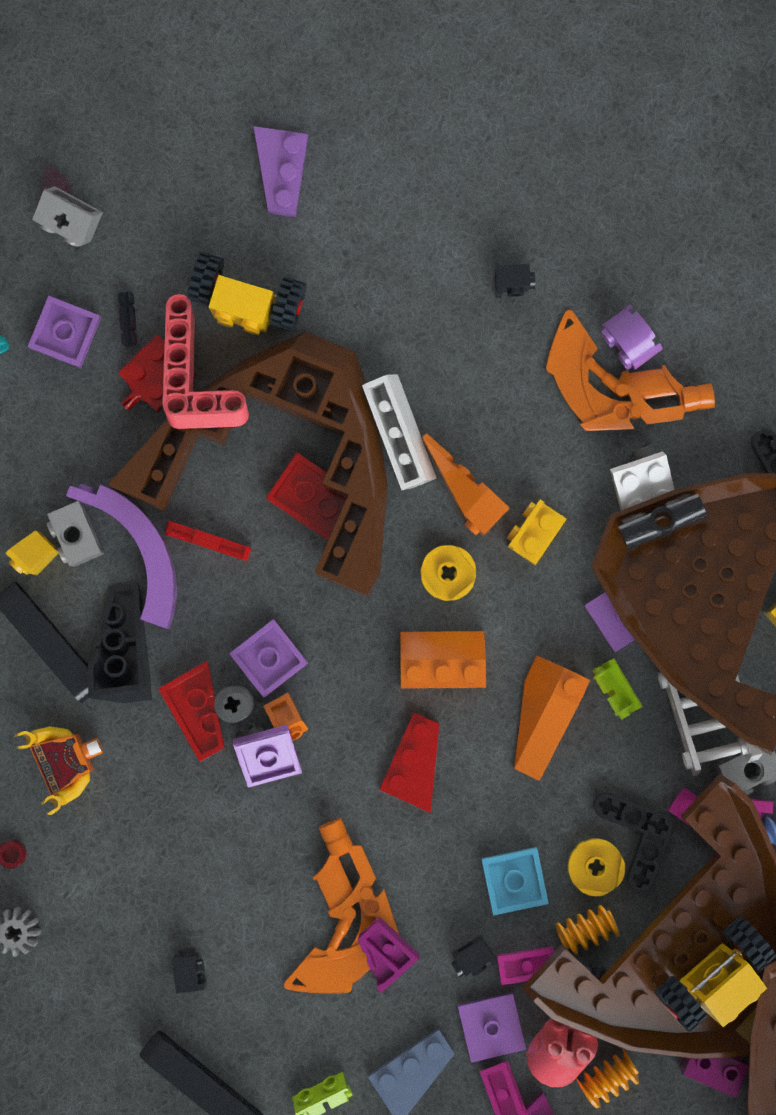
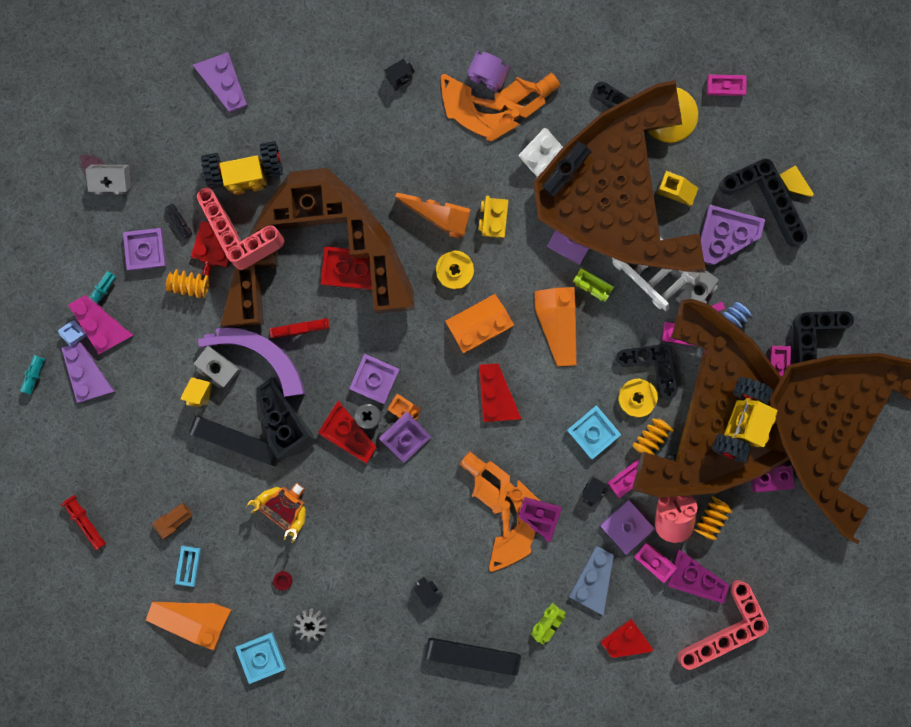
camera: 30 degrees left, 0 degrees up
(95, 407) = (190, 285): none -> light orange piece
(399, 431) = (379, 200): white brick -> none

